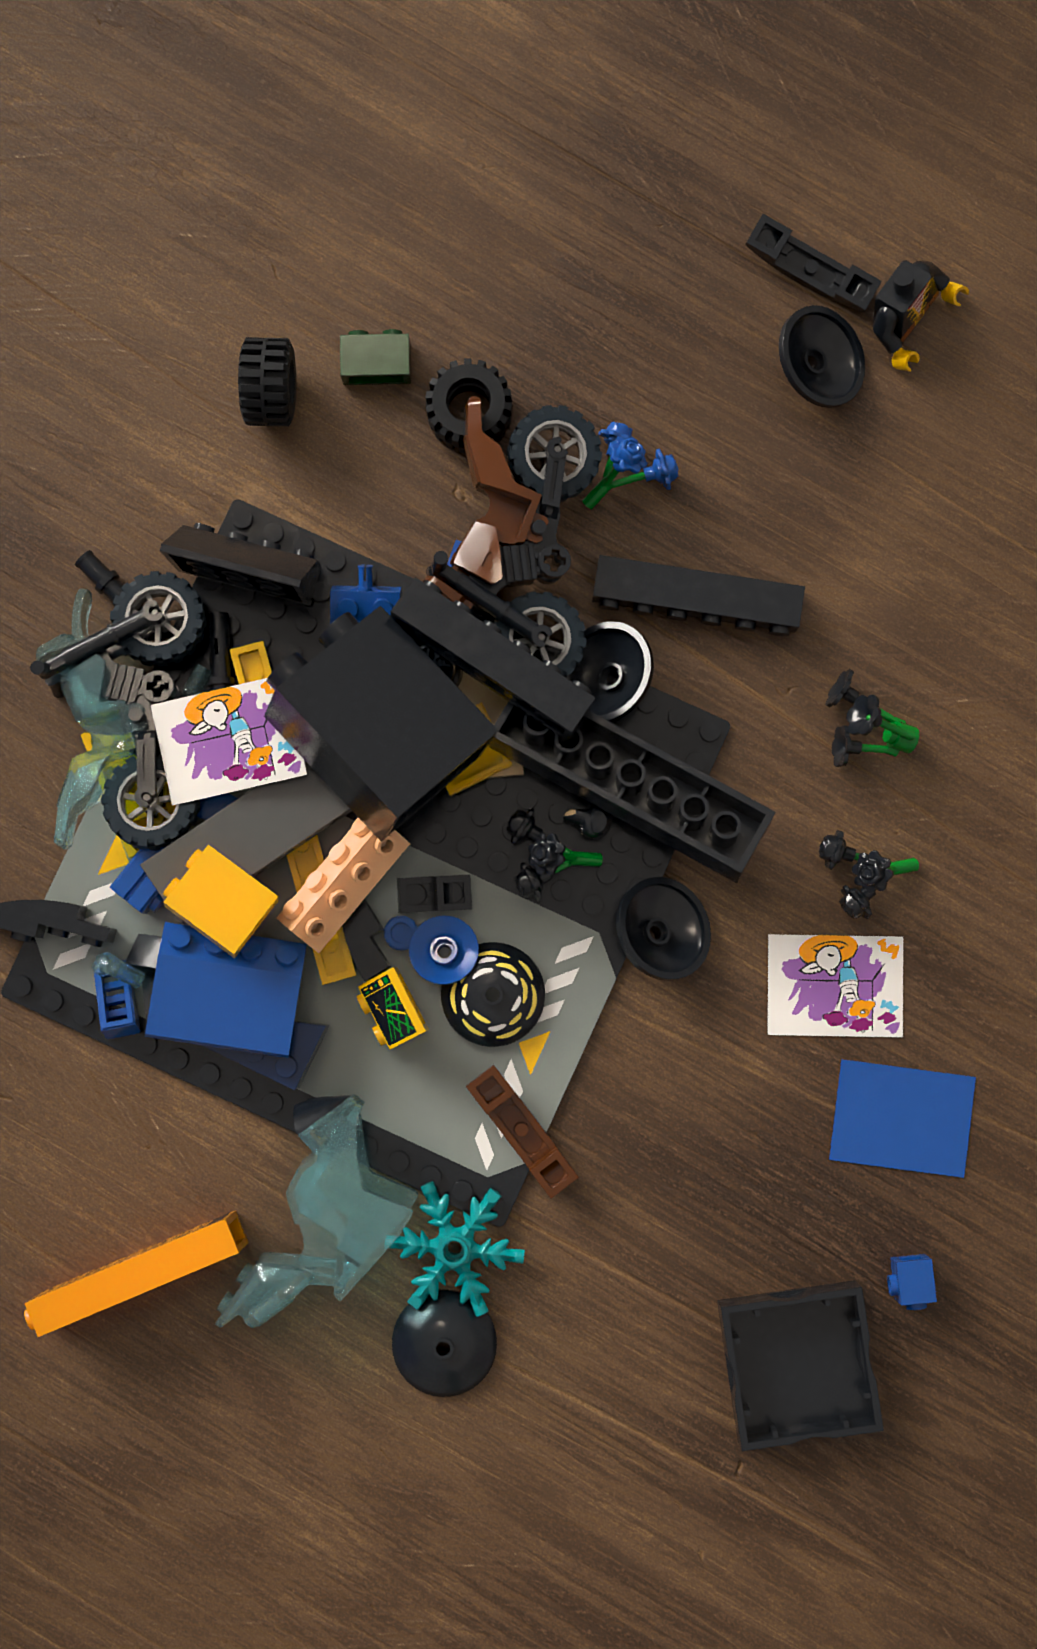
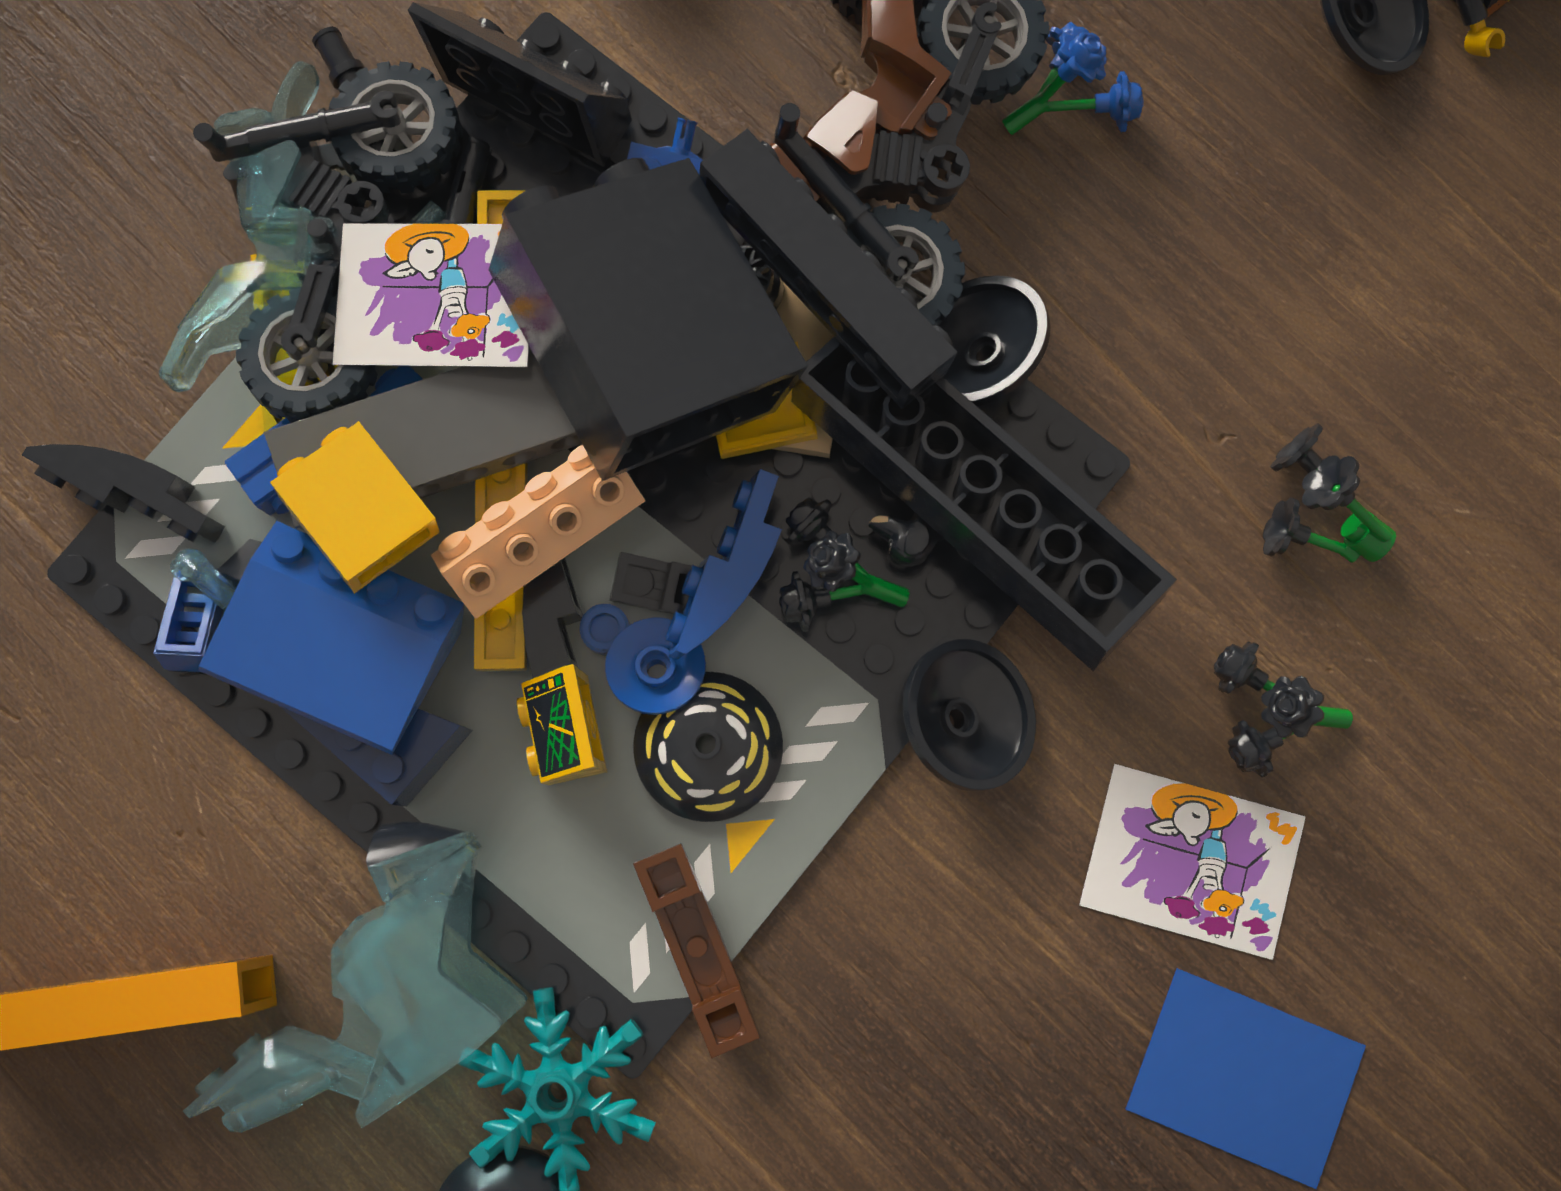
camera: 20 degrees right, 5 degrees down
(475, 886) = (723, 584): none -> blue slope
(698, 594) = (1130, 277): black brick -> none

